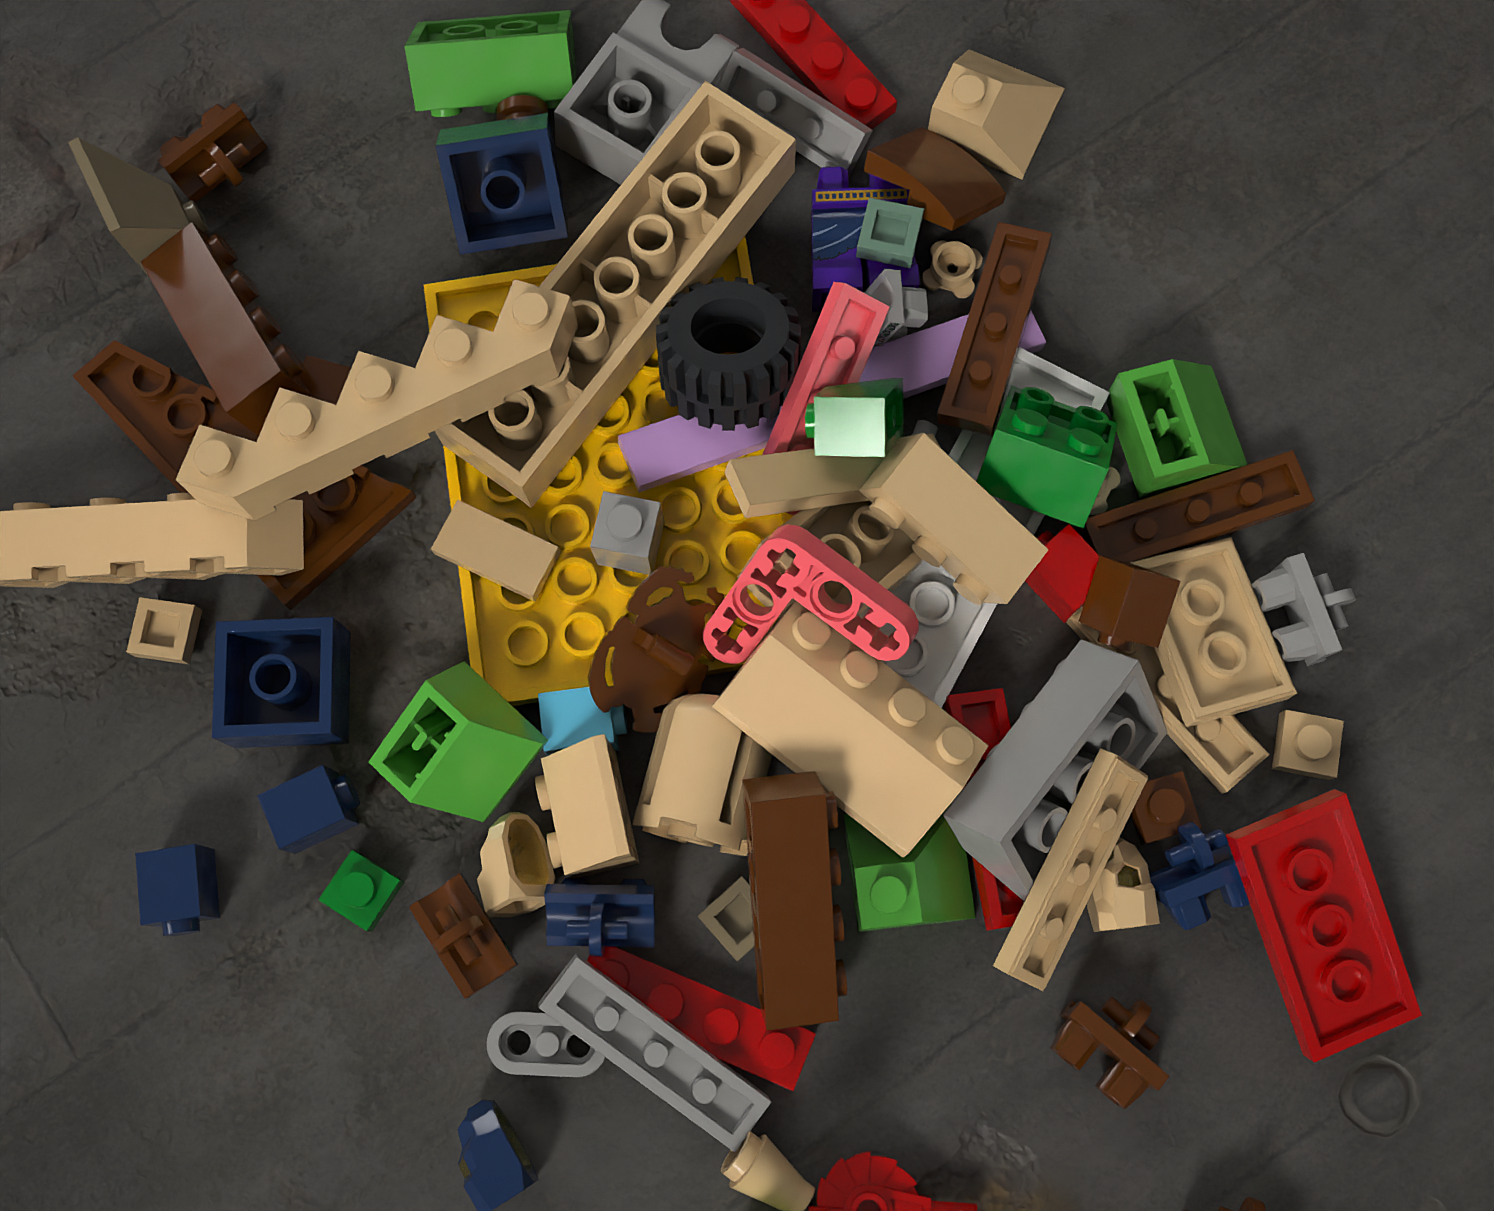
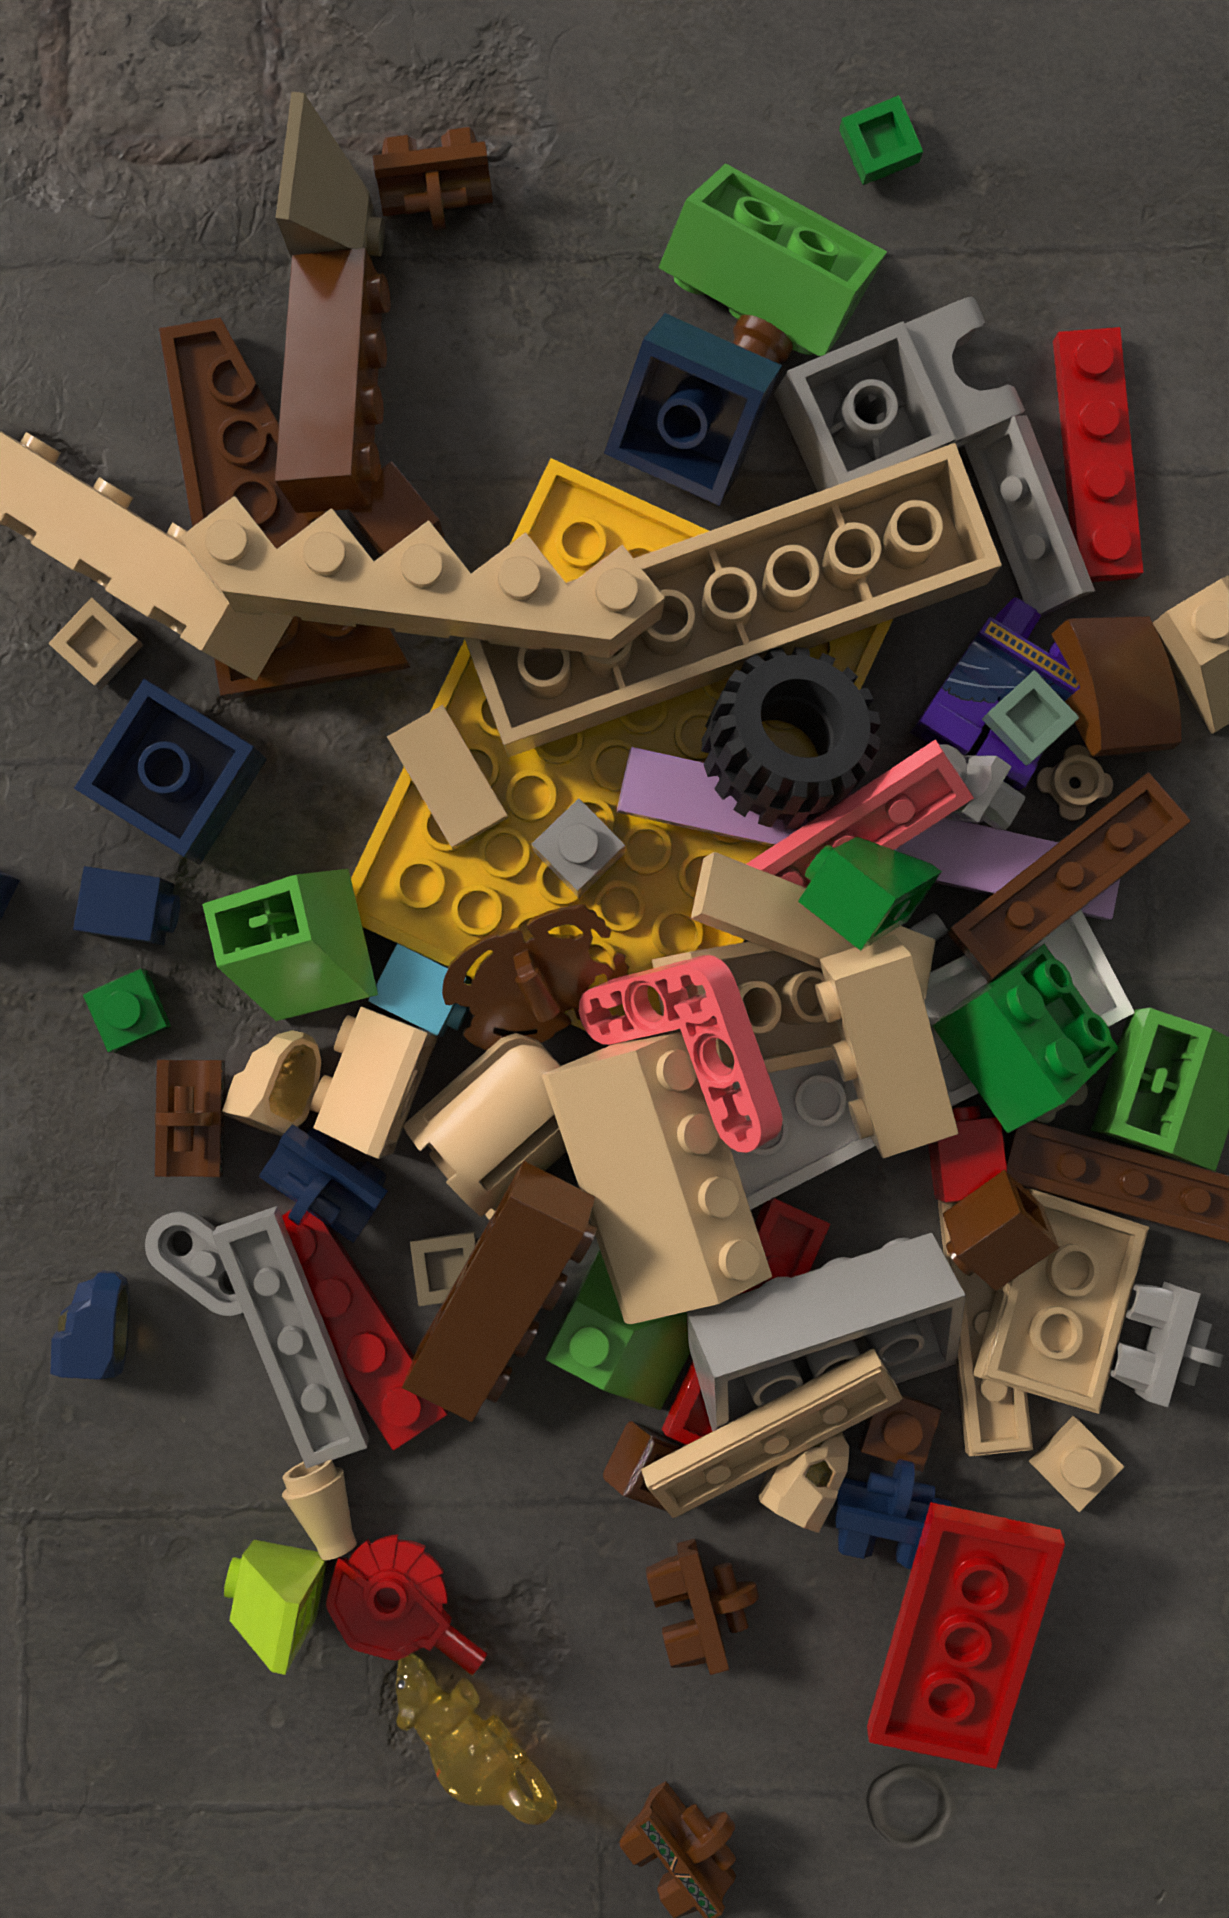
camera: 30 degrees right, 10 degrees up
(981, 978) = (634, 1451): none -> reddish brown slope

